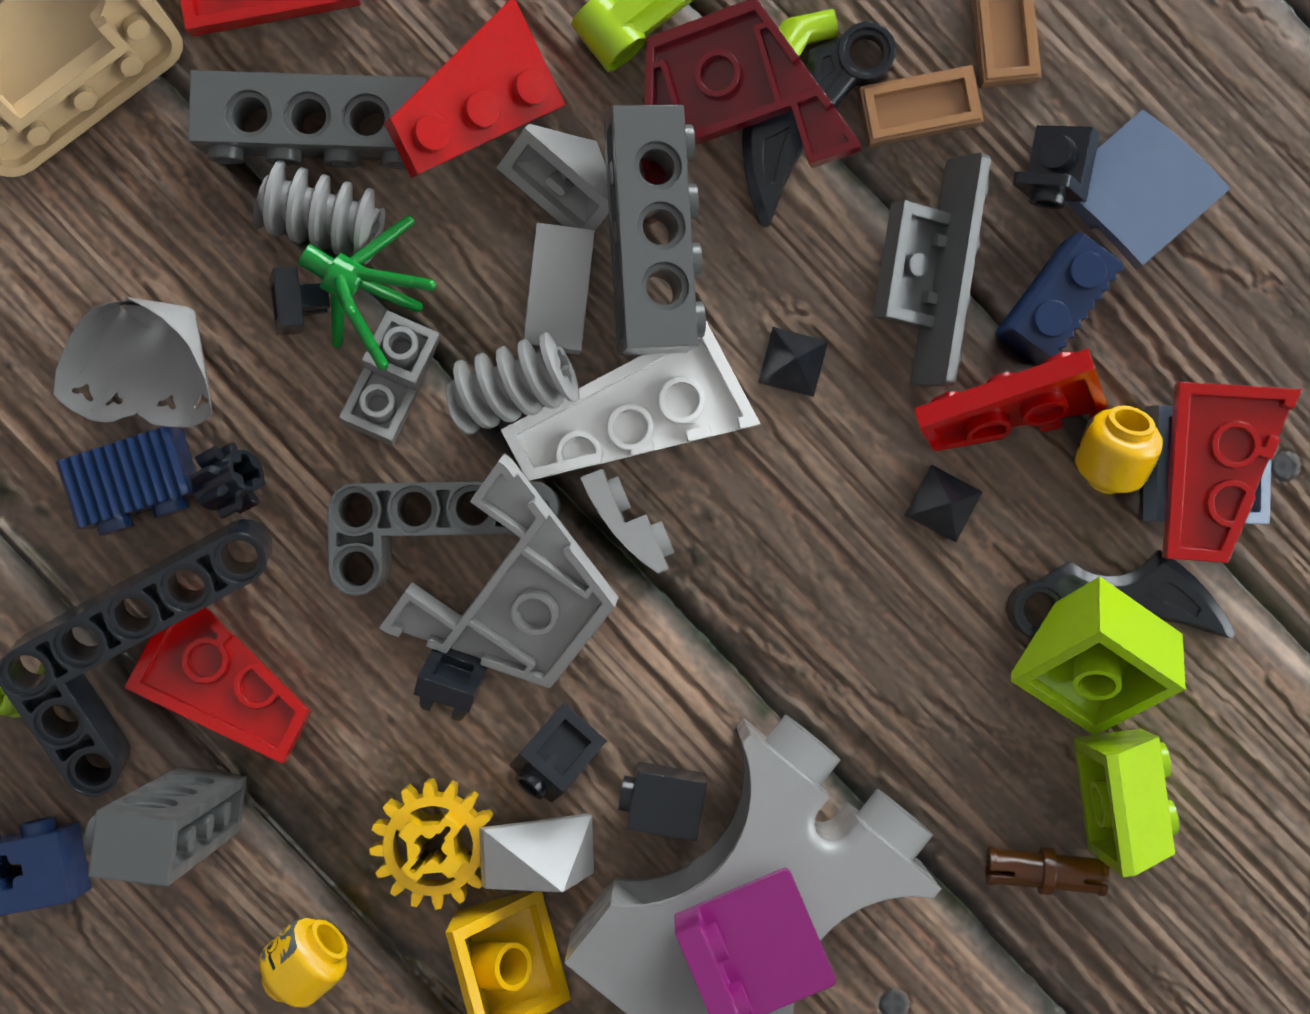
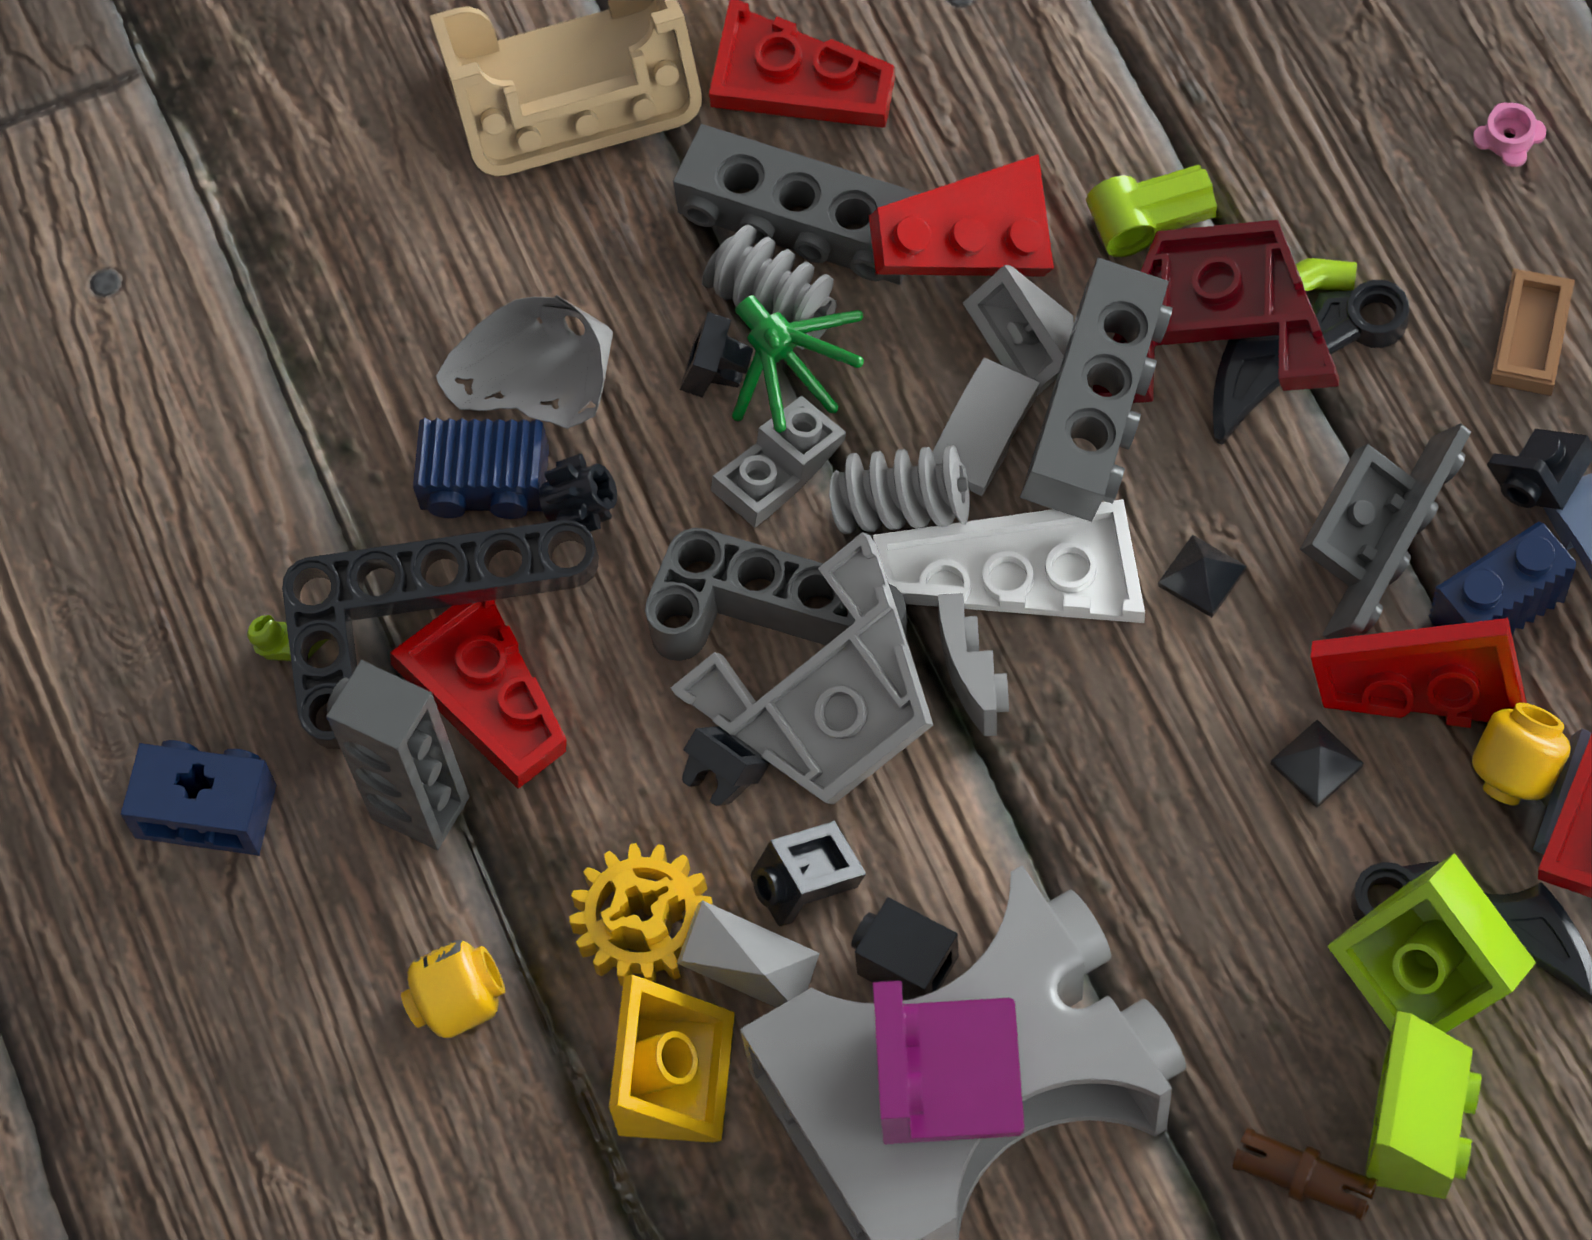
camera: 30 degrees right, 25 degrees down
(920, 106) = (1418, 378): medium nougat tile -> none

